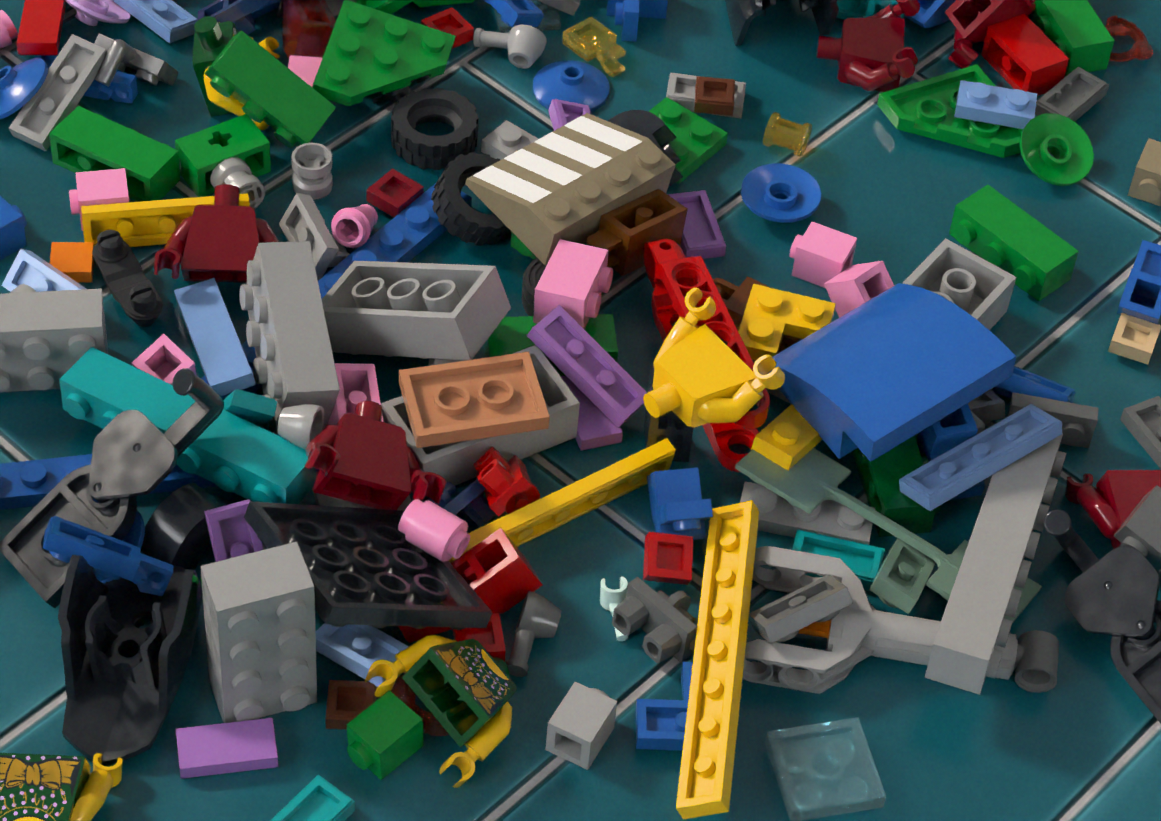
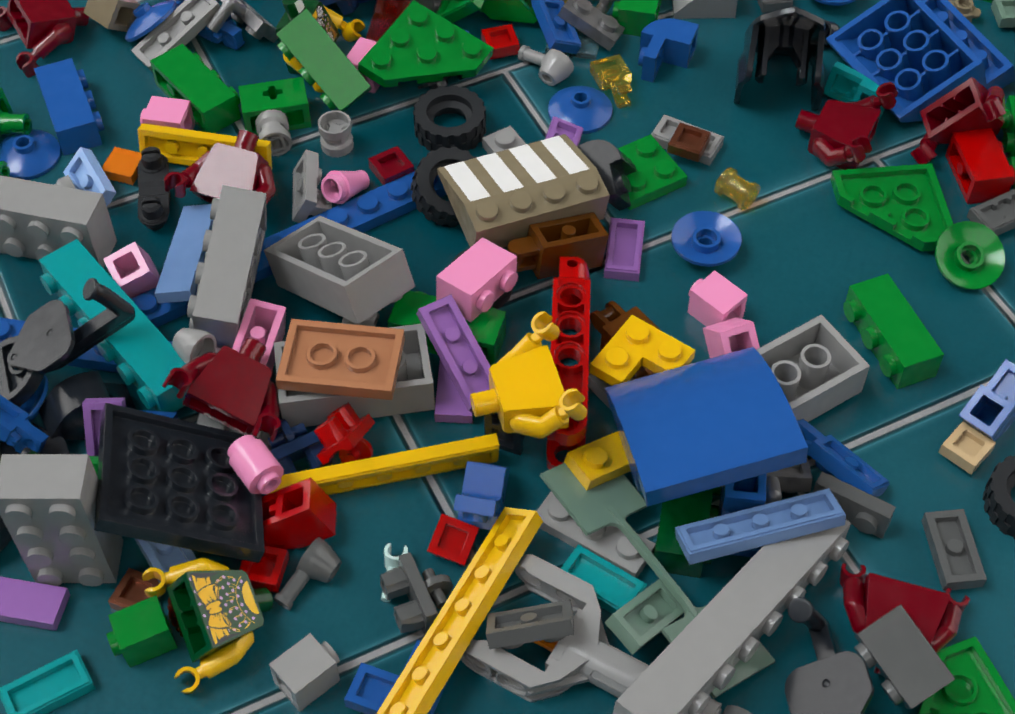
camera: 25 degrees right, 5 degrees up
(250, 407) = (166, 319): teal tile -> none
(995, 104) = (929, 202): medium blue plate -> none

